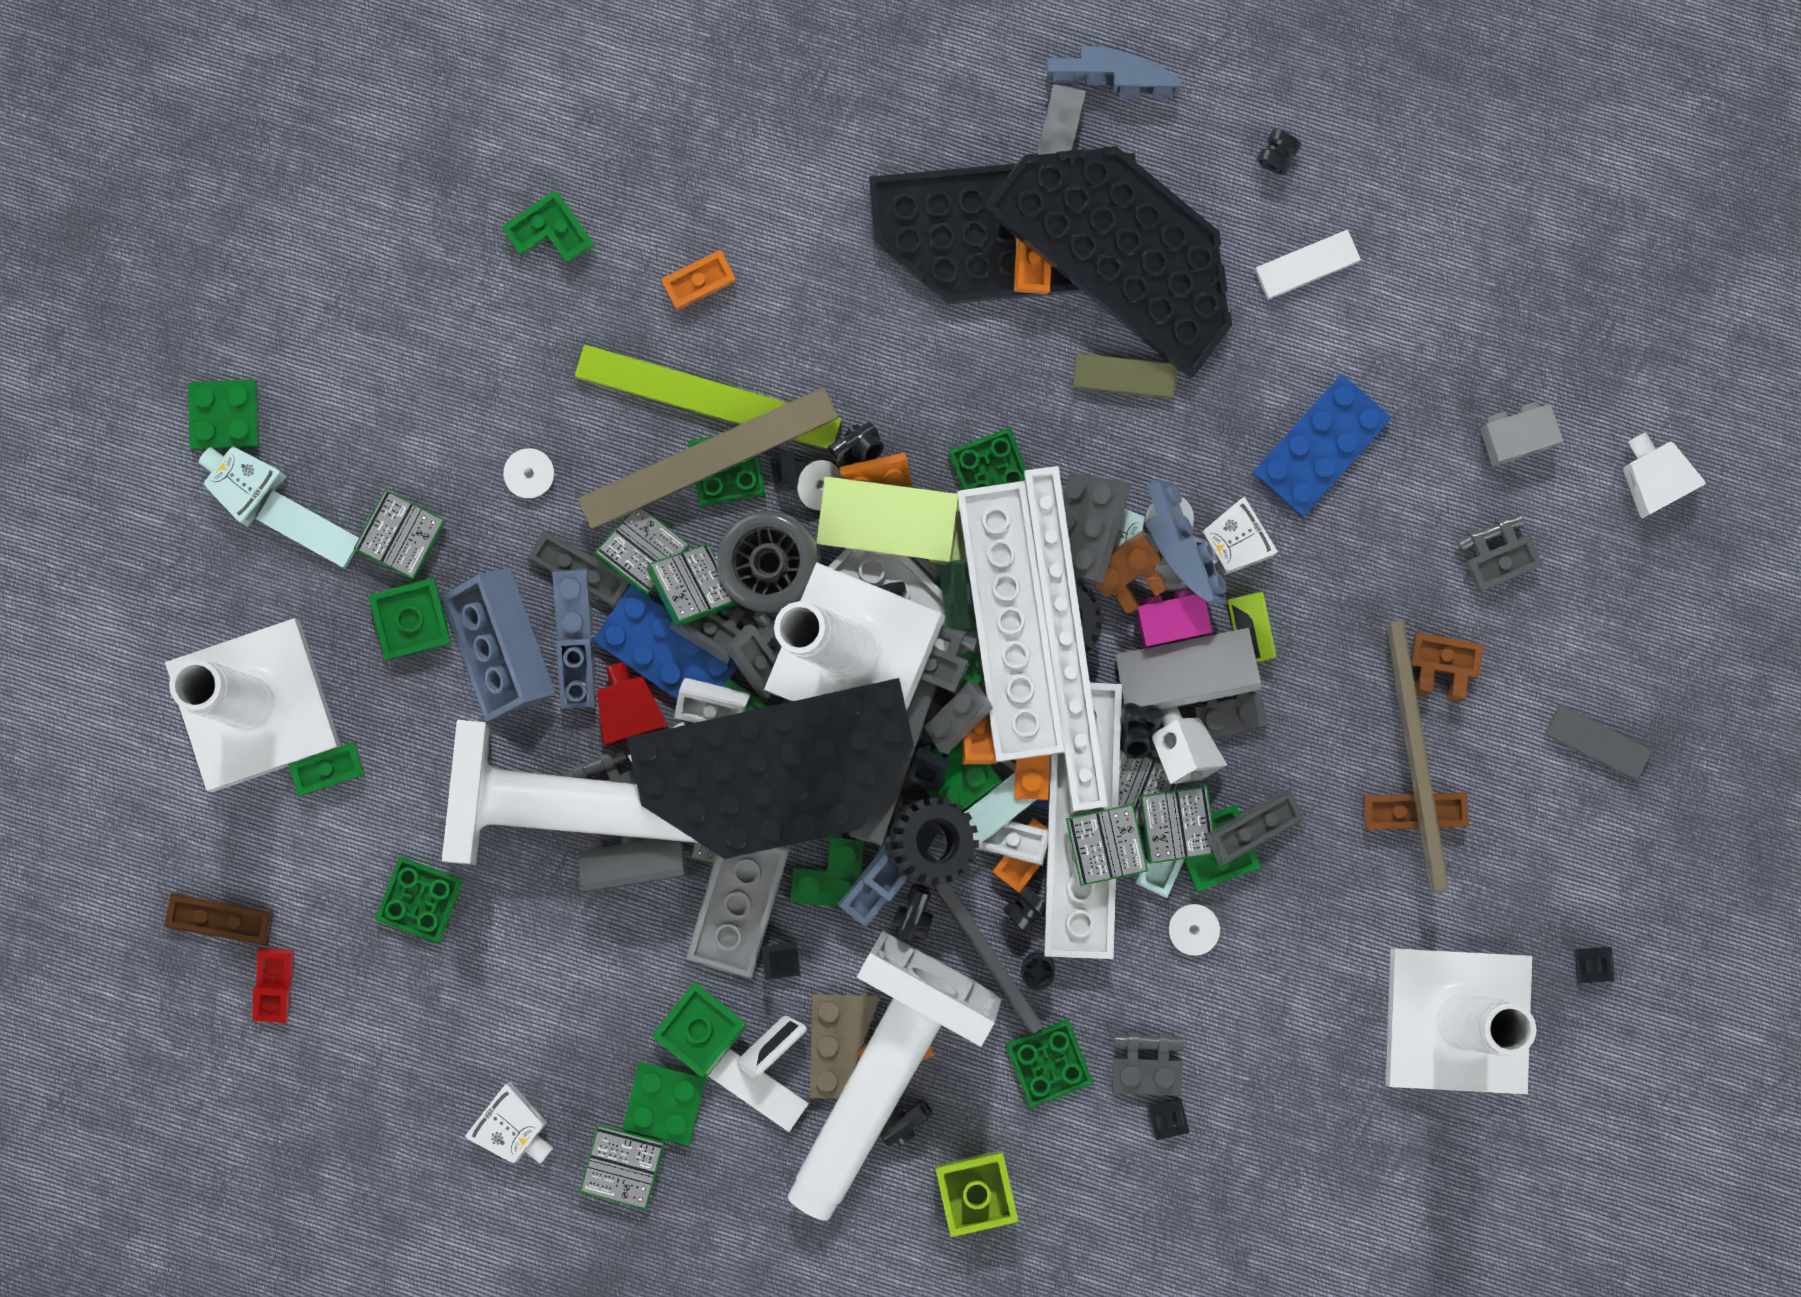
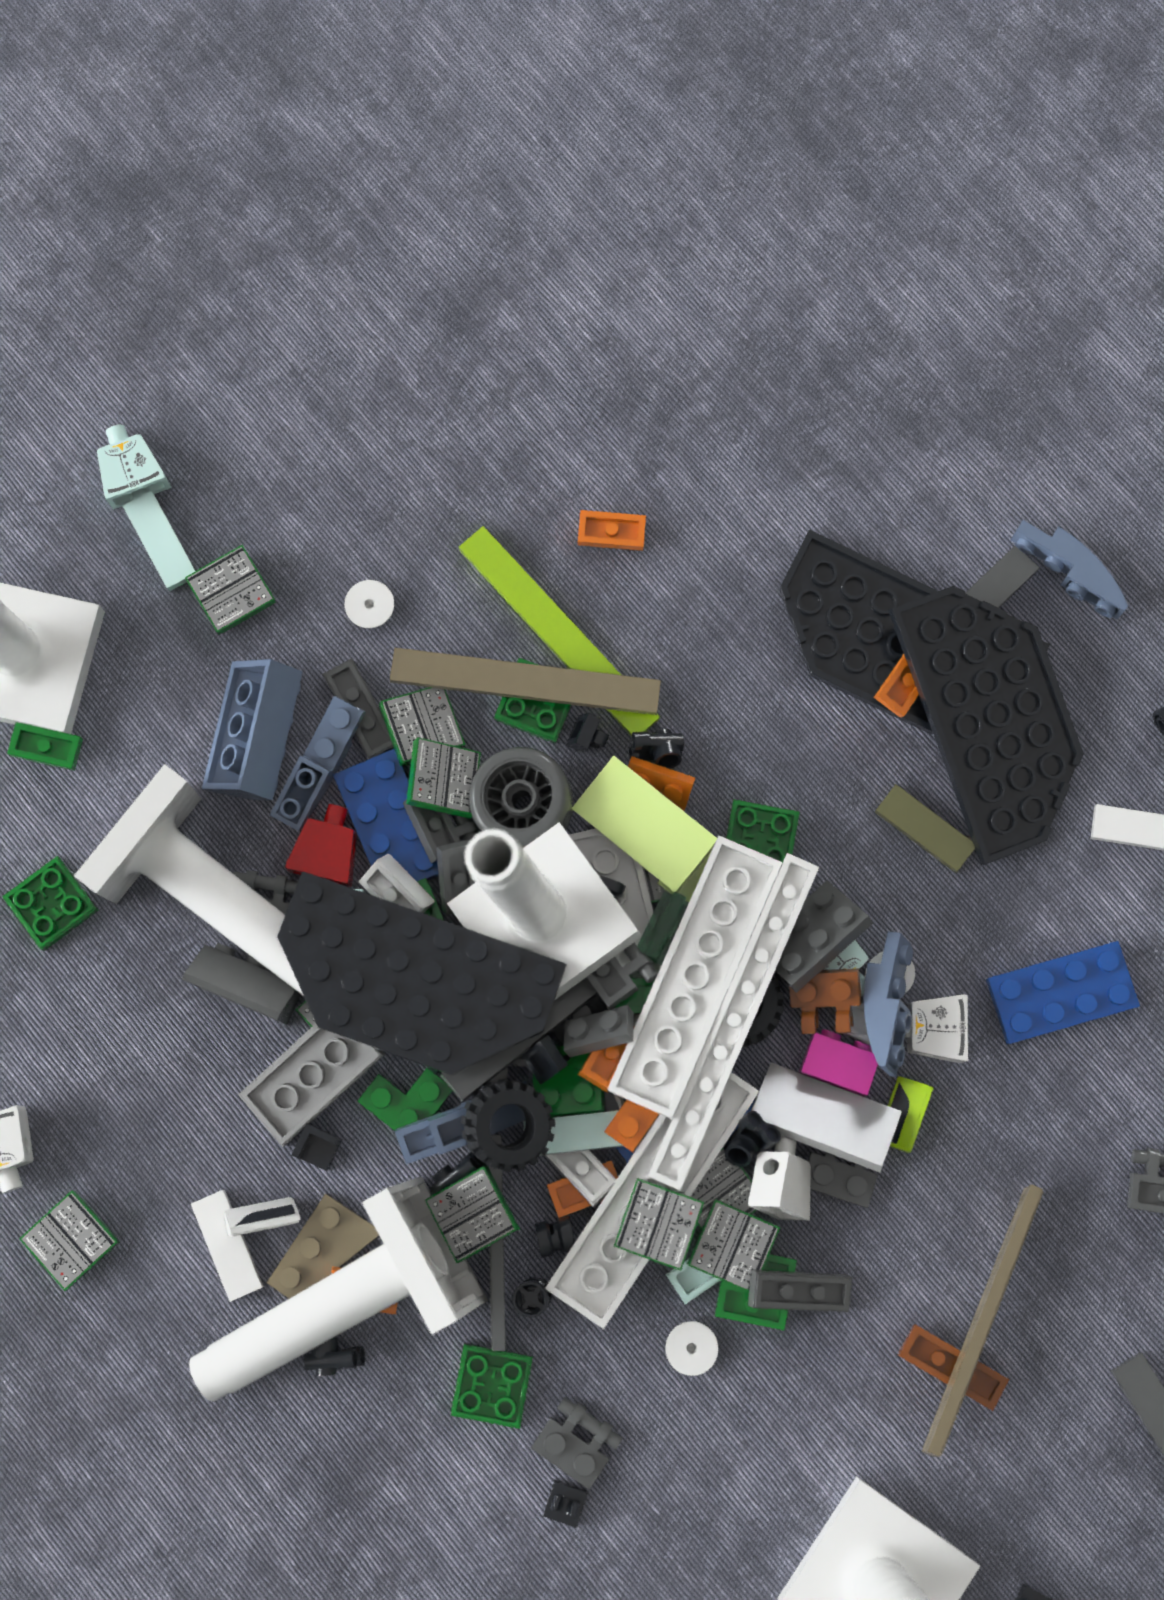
camera: 35 degrees right, 5 degrees down
(223, 415) = (152, 406): green plate -> none
(410, 619) = (193, 664): green plate -> none
(550, 220) = (517, 406): green plate -> none
(664, 1103) = (141, 1208): green plate -> none
(699, 1030) = (209, 1164): green plate -> none
(812, 482) = (600, 753): white piece -> none
(947, 933) = (472, 1214): none -> light grey tile
(976, 1193) = (354, 1461): lime brick -> none
(1448, 657) = (1063, 1246): dark orange plate -> none

